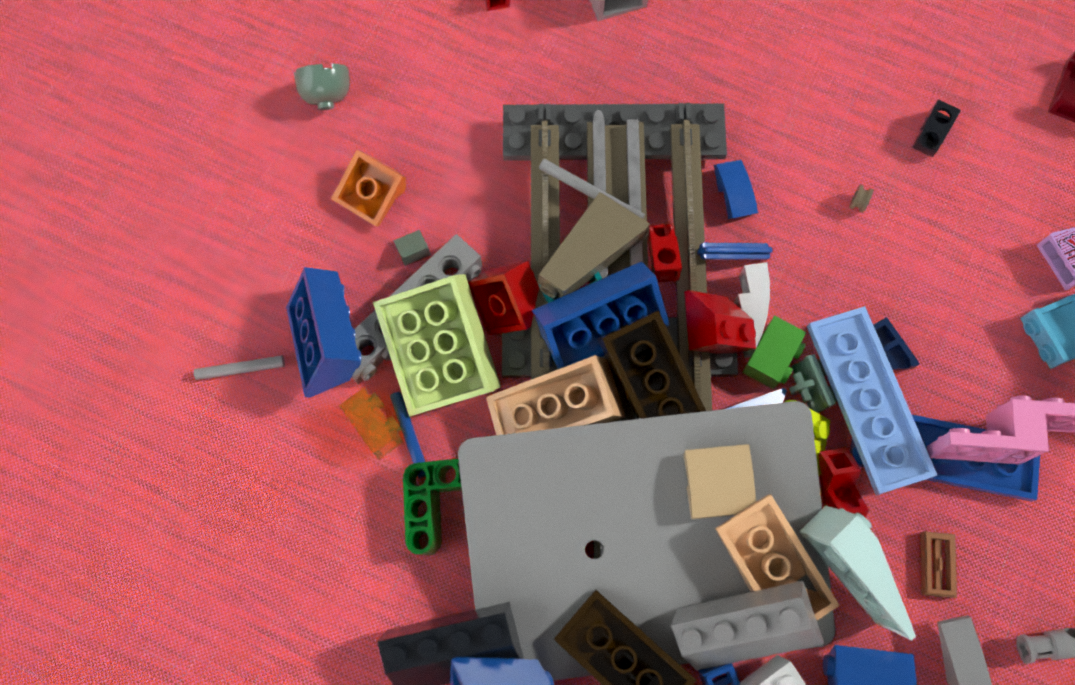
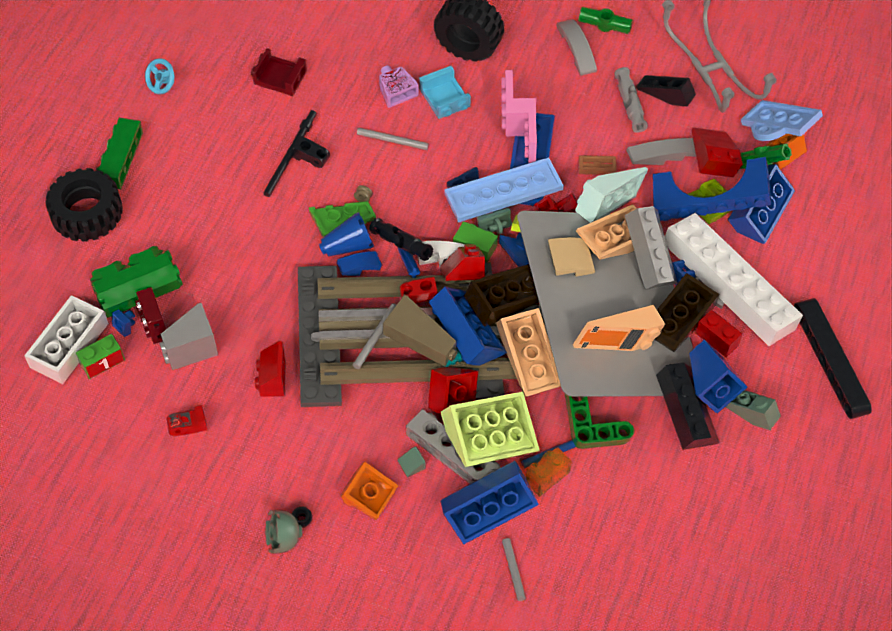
camera: 95 degrees left, 15 degrees down
(346, 105) = (302, 511): none -> black plate
(557, 76) = (271, 371): none -> red slope
(577, 579) = (622, 331): none -> light nougat slope
(770, 241) = (401, 239): none -> black piece
(779, 175) = (347, 237): none -> blue cone
(817, 169) = (331, 217): none -> bright green wing
(972, 247) = (392, 138): none -> light grey bar
(987, 125) = (305, 127): none -> black bar

